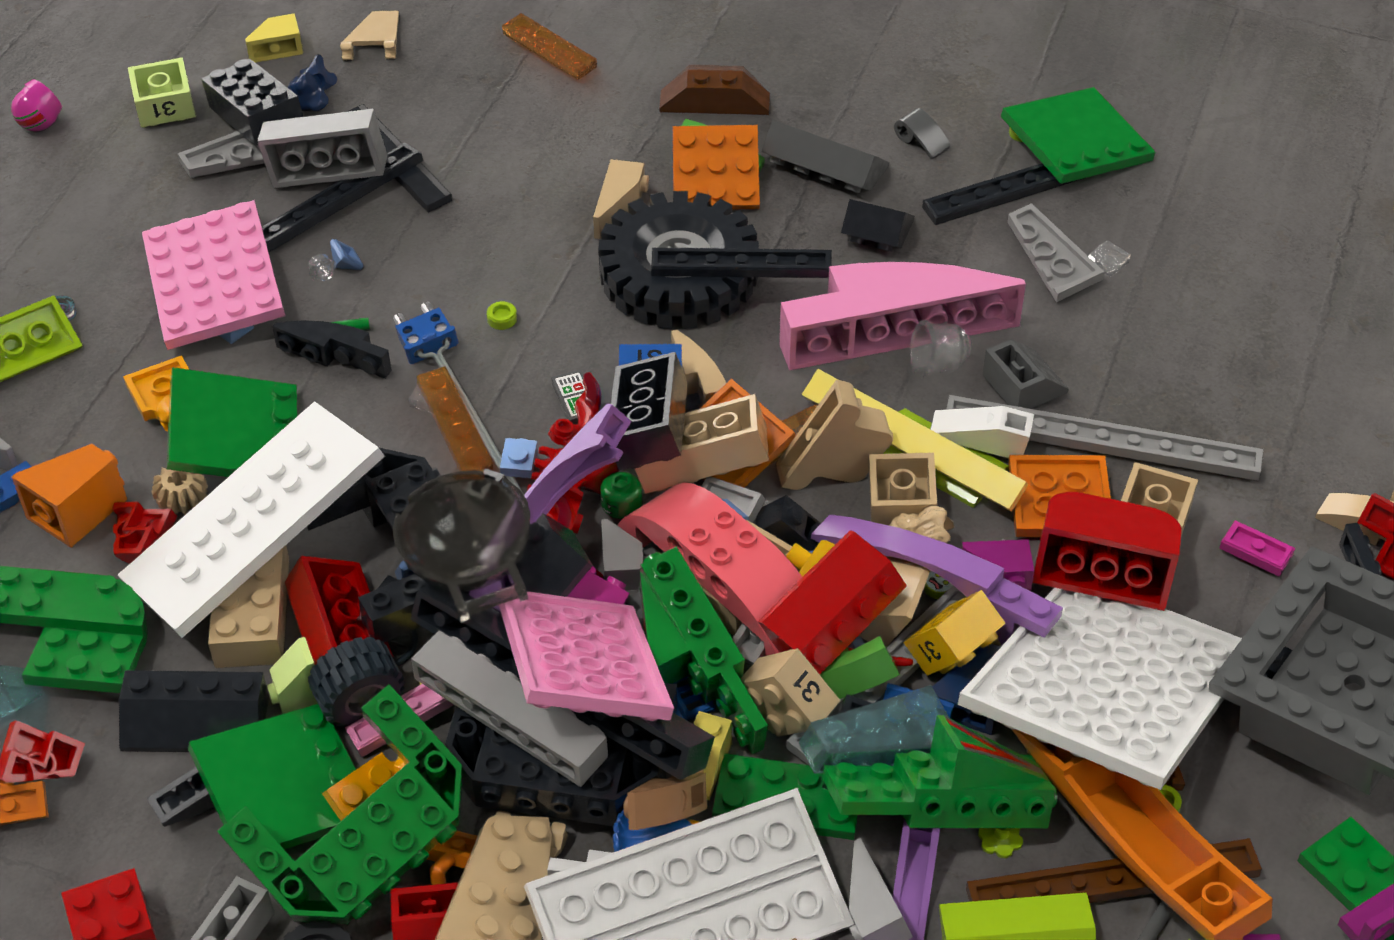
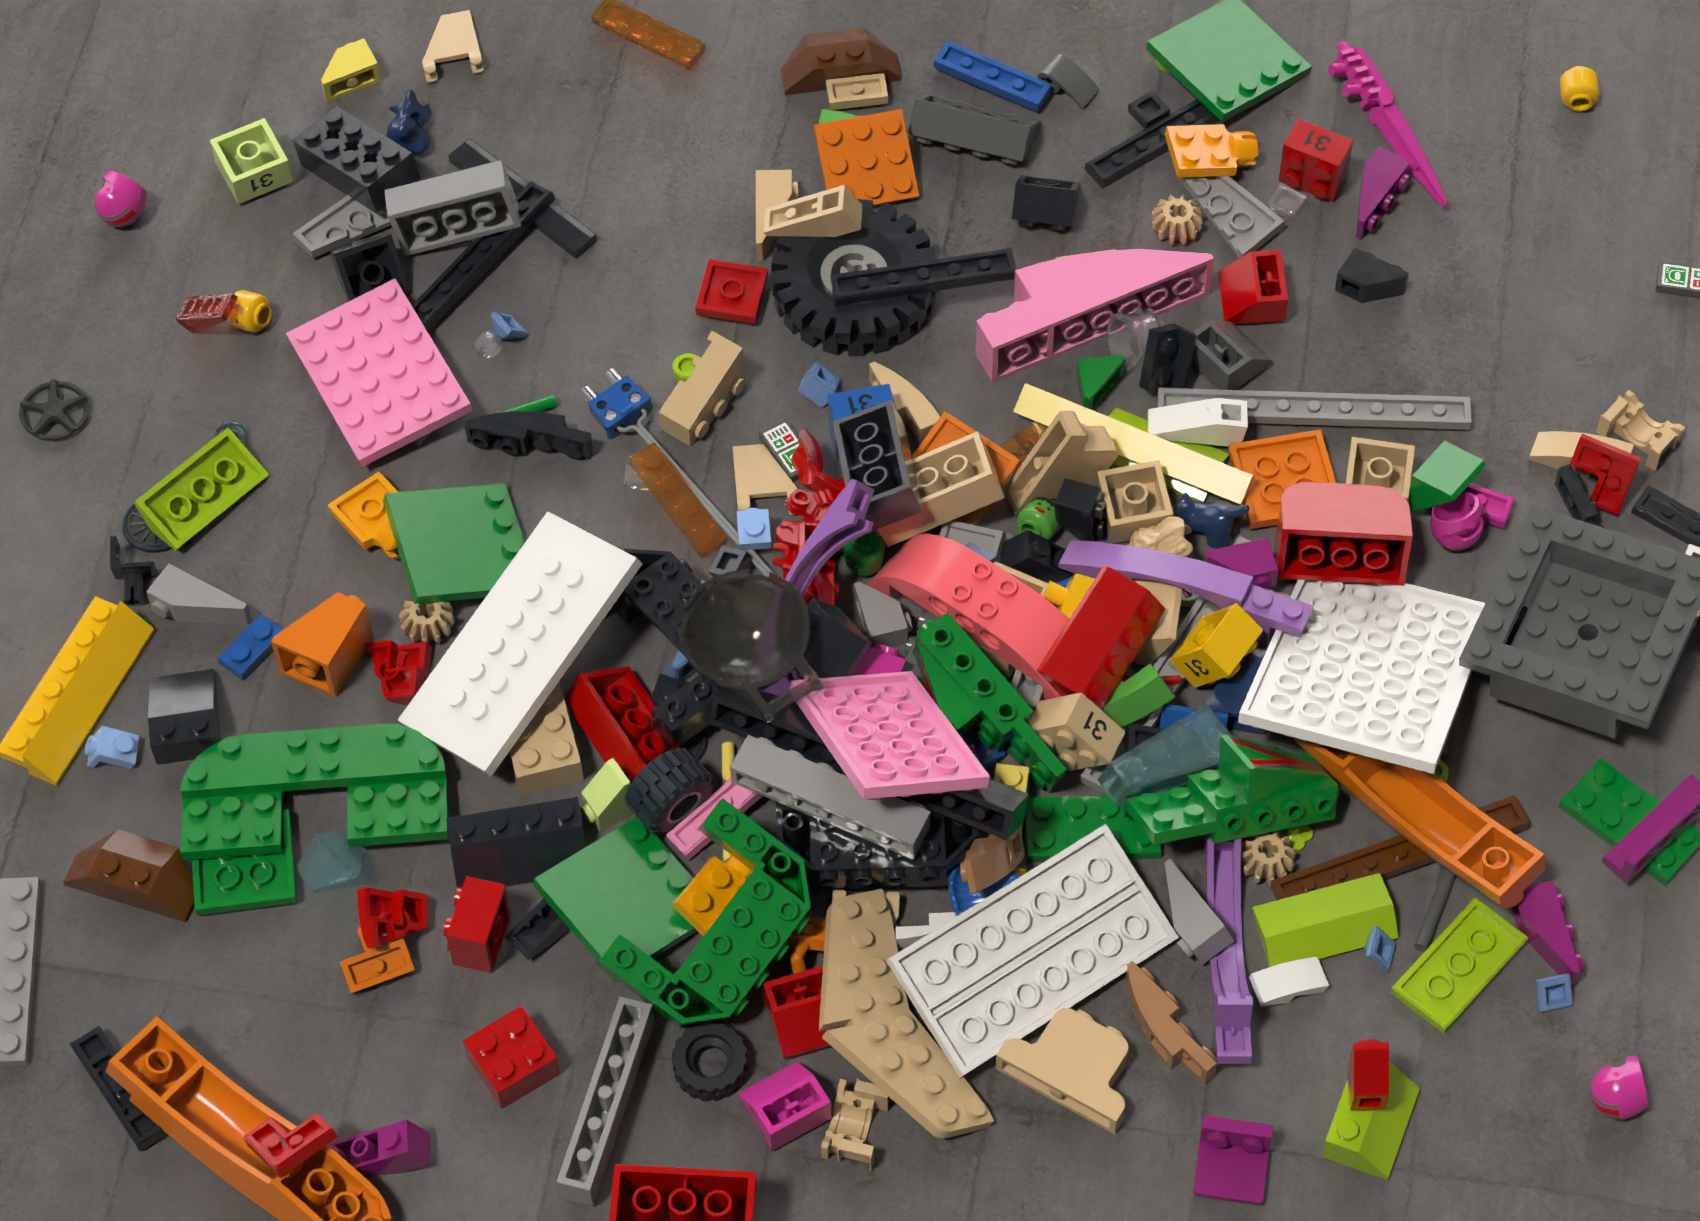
camera: 10 degrees left, 10 degrees up
(73, 201) = (205, 311): none -> clear red slope
(113, 208) = (250, 312): none -> yellow head
(120, 779) = (477, 924): none -> red brick
(234, 184) = (368, 265): none -> black slope
(509, 333) = (706, 391): none -> tan wedge
(537, 412) = (758, 475): none -> tan flag
(561, 257) = (731, 291): none -> red plate
(621, 335) = (819, 383): none -> medium blue slope
(653, 196) = (815, 215): none -> tan slope
(724, 113) = (857, 91): none -> tan plate
(807, 491) = (1039, 518): none -> bright green head
(845, 487) = (1081, 510): none -> black slope
(853, 120) = (992, 76): none -> blue plate
(894, 377) = (1098, 377): none -> green slope
(962, 366) = (1167, 357): none -> black bracket
(967, 855) = (1279, 856): none -> tan gear
(976, 519) = (1210, 518): none -> dark blue animal
(992, 165) = (1148, 109): none -> black plate
(1000, 255) = (1177, 219): none -> tan gear
(1044, 203) = (1210, 150): none -> light orange plate
(1063, 323) = (1254, 288): none -> red slope
(1144, 223) = (1315, 160): none -> red brick
(1180, 332) = (1370, 278): none -> black slope
(1205, 253) = (1381, 181): none -> magenta slope
(1214, 184) = (1367, 84): none -> dark pink piece
(1220, 512) = (1443, 476): none -> slope
(1229, 559) = (1456, 523): none -> dark pink helmet

